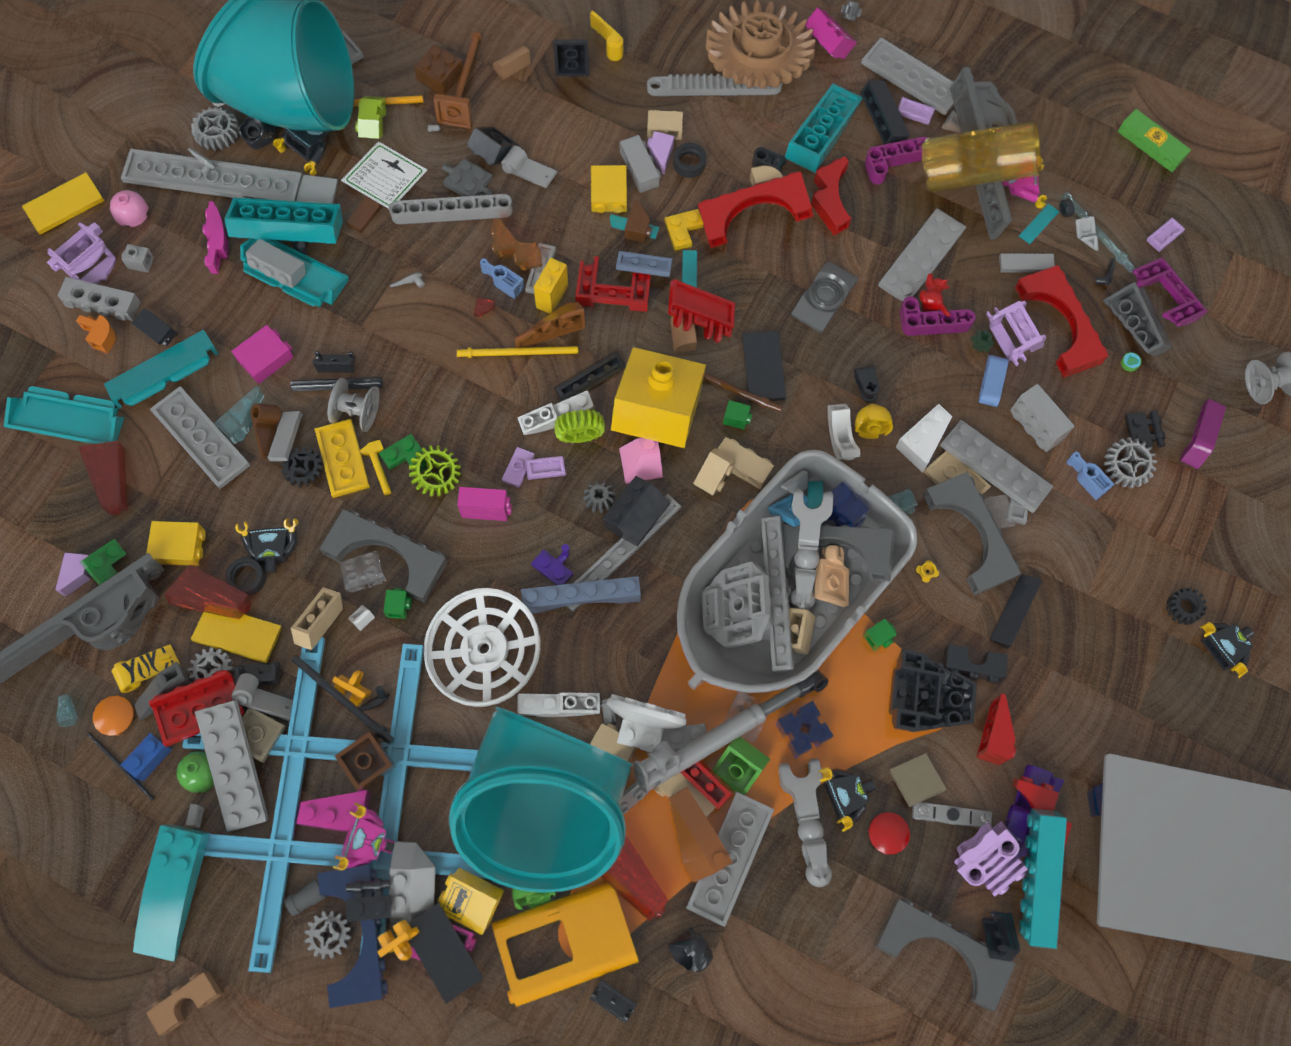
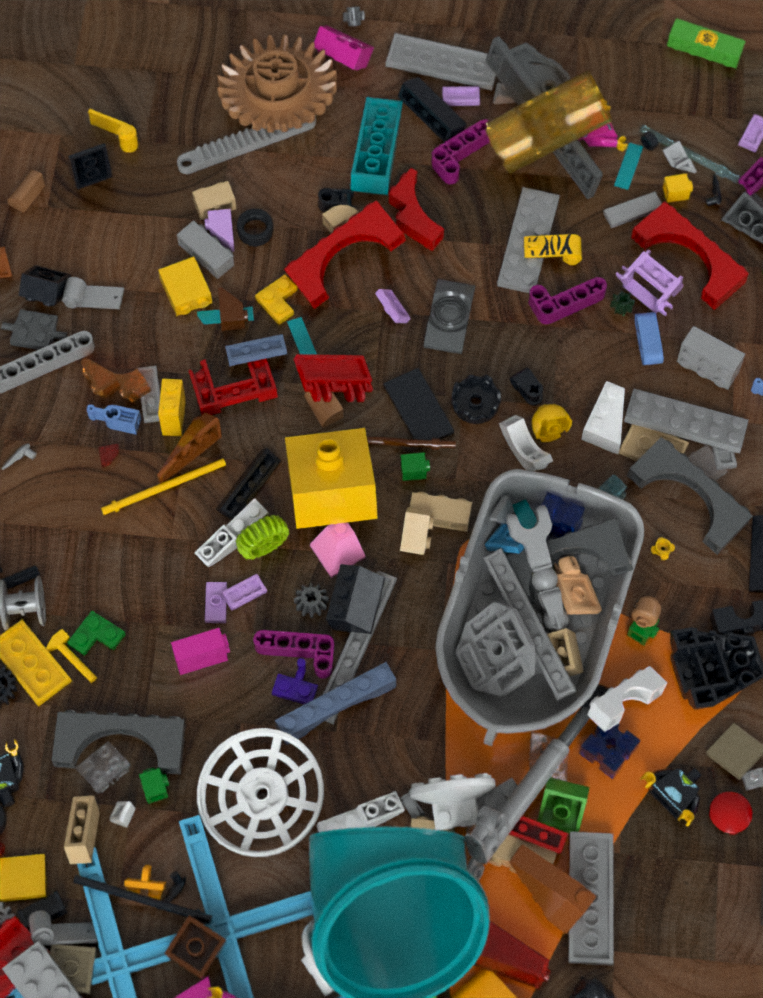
camera: 20 degrees left, 5 degrees down
(430, 464) = (148, 650): lime gear -> none
(565, 533) = (293, 650): none -> magenta beam
(778, 269) = (392, 306): none -> lavender plate
(807, 813) = (645, 823): light grey piece -> none
(824, 368) = (479, 388): none -> black plate
(857, 688) = (644, 686): none -> white arch
(887, 623) = (647, 611): none -> medium nougat head
(932, 297) = (556, 277): red animal -> none
(942, 268) = (563, 246): none -> yellow door
(1074, 257) = (677, 188): none -> yellow brick

